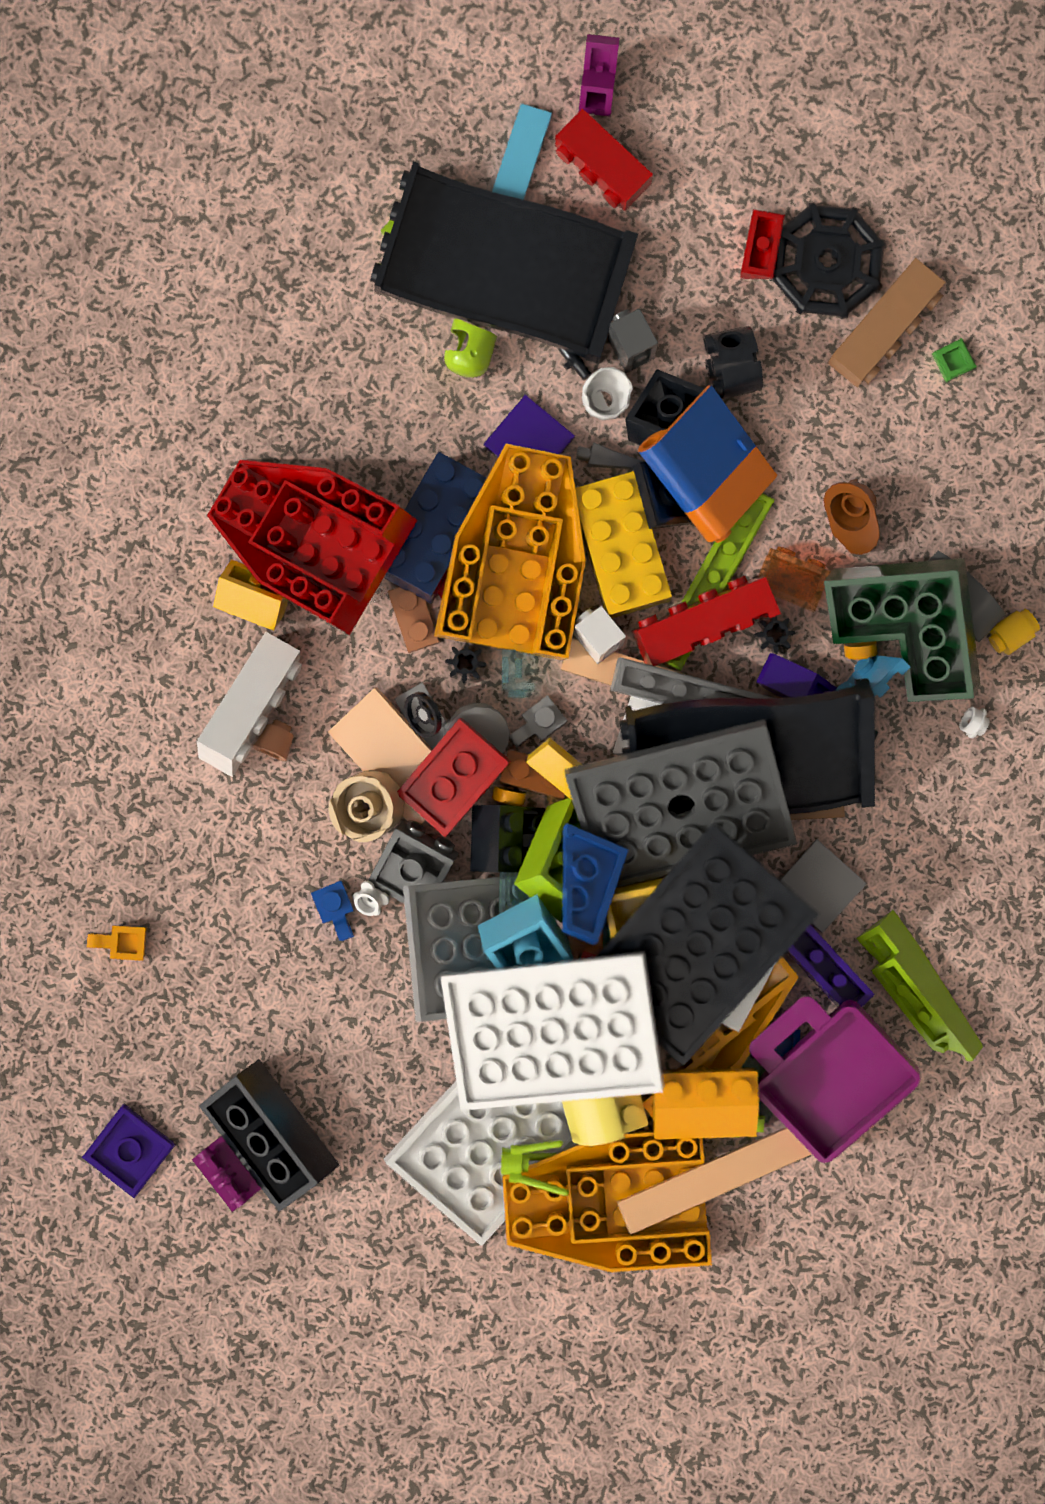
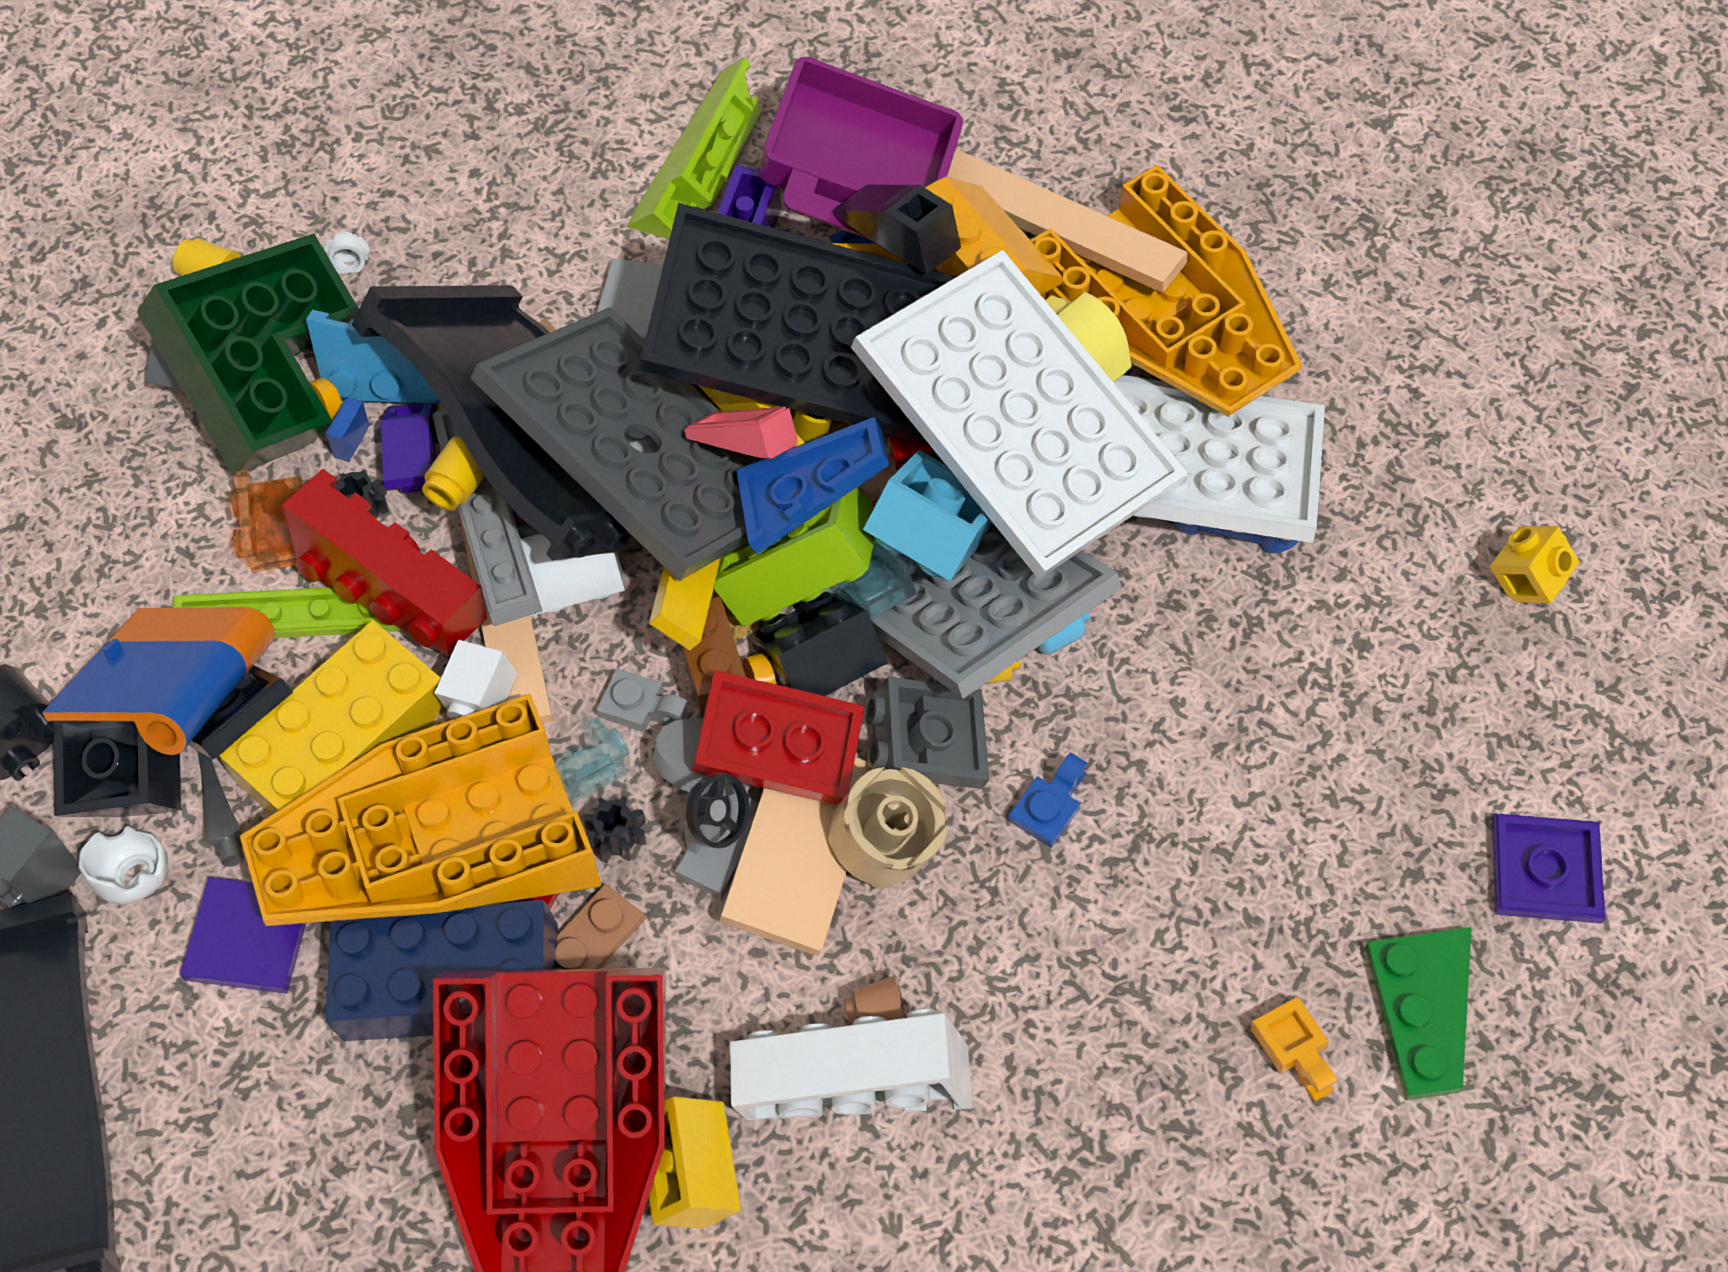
camera: 125 degrees left, 25 degrees down
(100, 1026) = (1424, 1007): none -> green wing
(226, 1174) = (1456, 726): magenta hinge -> none
(269, 1135) = (1390, 704): black slope -> none
(298, 1285) = (1534, 564): none -> yellow brick
(370, 899) = (1008, 764): white plate -> none
(476, 356) = (164, 1062): lime helmet -> none
(517, 1158) = (1198, 398): lime plant -> none
(576, 363) = (99, 940): black helmet -> none
(629, 874) = (749, 431): none -> coral slope
(733, 685) = (452, 476): none -> yellow brick
(738, 1051) = (905, 222): none -> black slope
(829, 653) = (348, 429): none -> blue tile
(853, 515) = (151, 481): dark orange piece -> none

